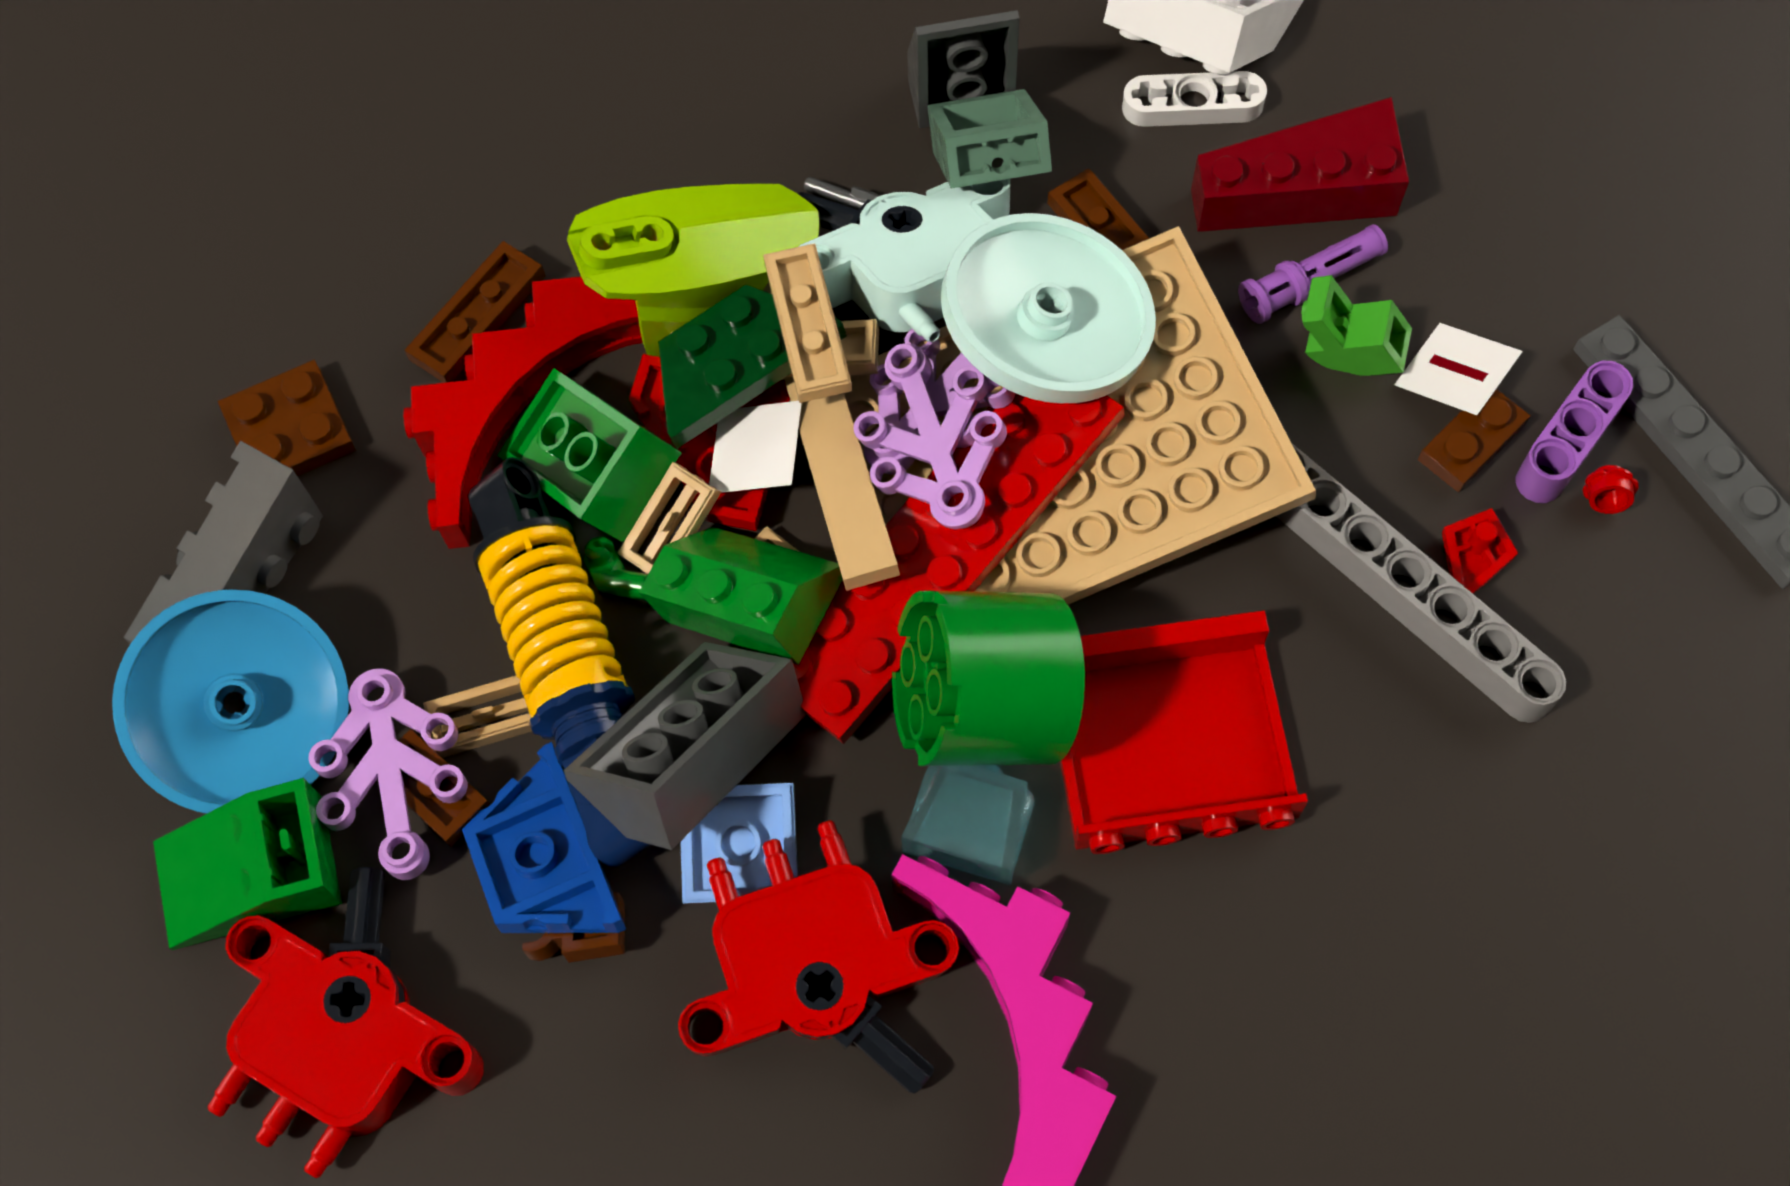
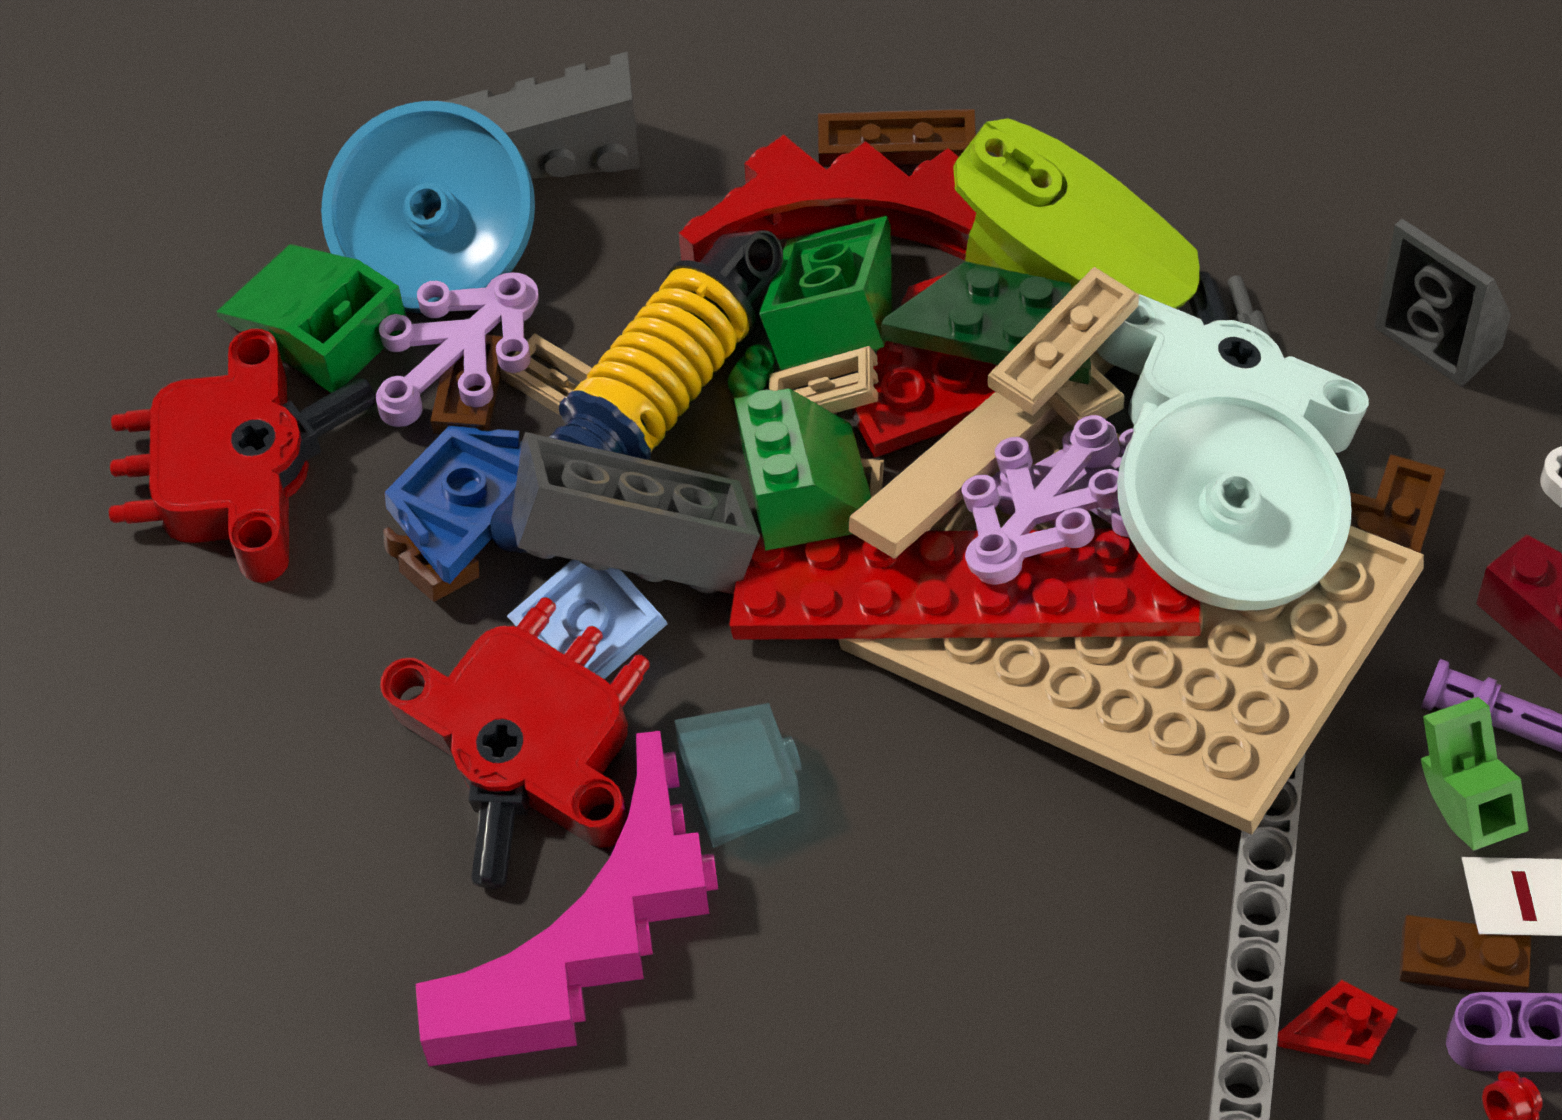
camera: 55 degrees right, 10 degrees down
(290, 419) = (694, 90): reddish brown plate -> none
(756, 447) = (936, 395): white sticker -> none
(981, 128) = (1403, 368): sand green window -> none
(988, 678) = (849, 675): green brick -> none
(1178, 736) = (949, 878): red panel -> none

